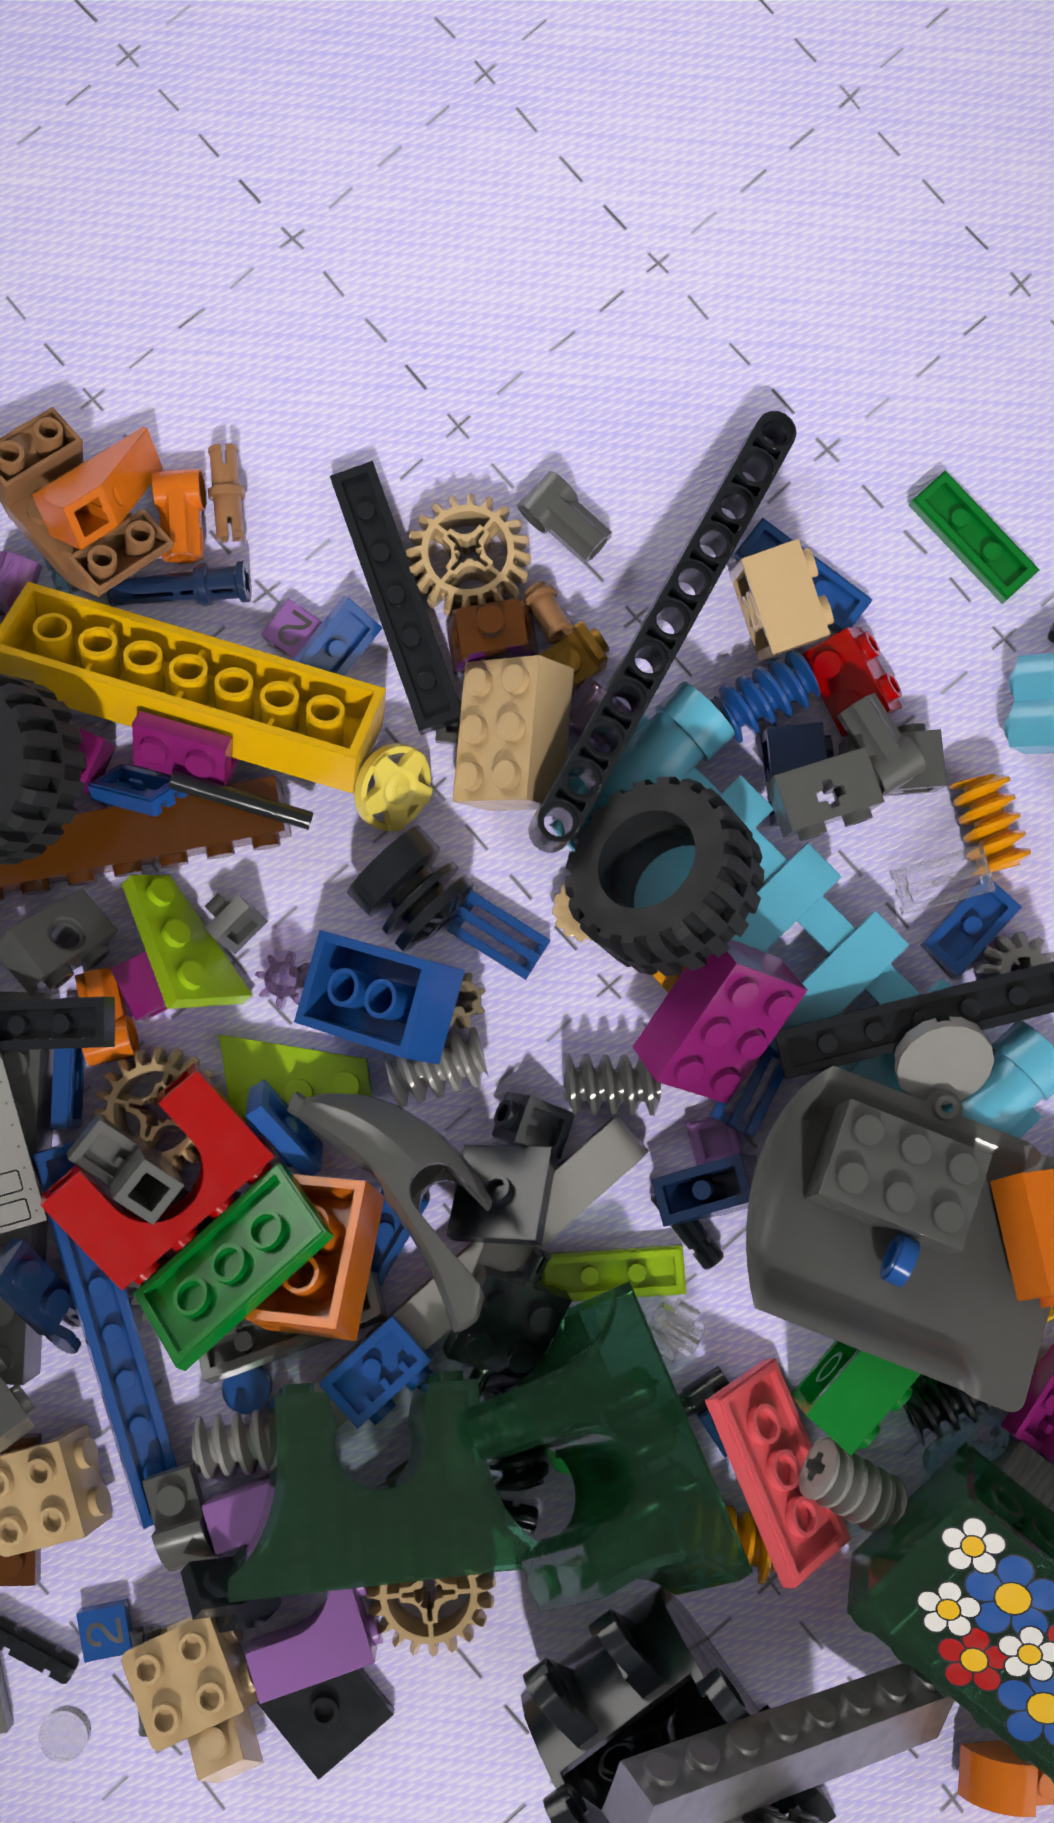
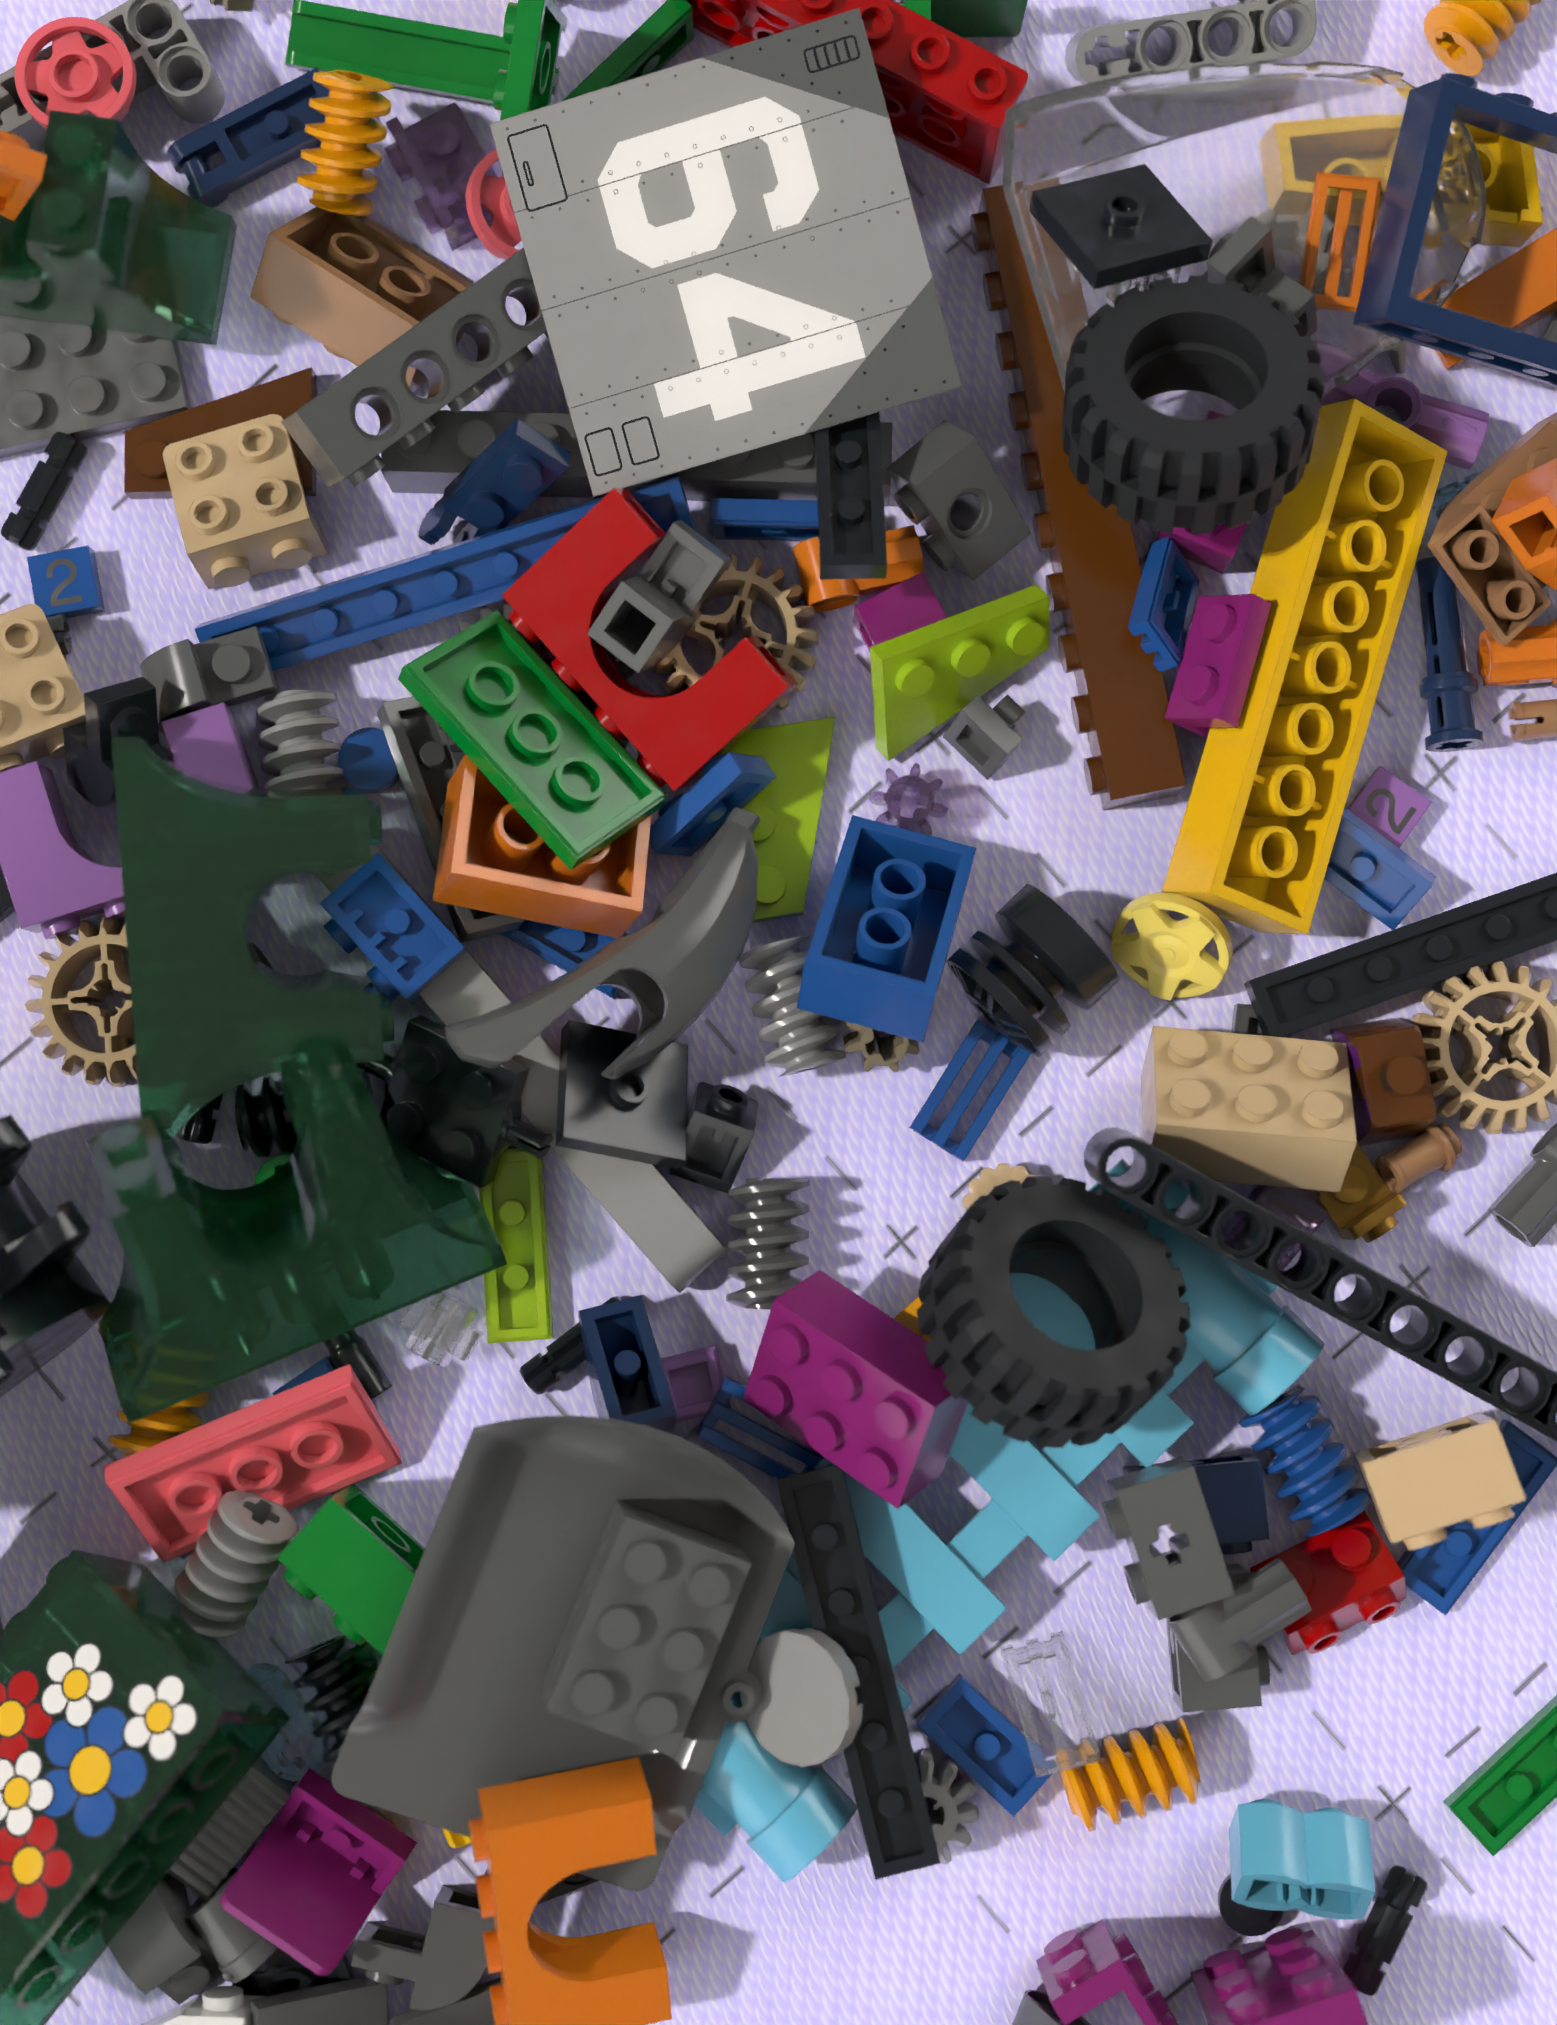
camera: 90 degrees right, 0 degrees up
(240, 800) = (1151, 740): black bar -> none
(899, 1259) = (534, 1627): blue tile -> none

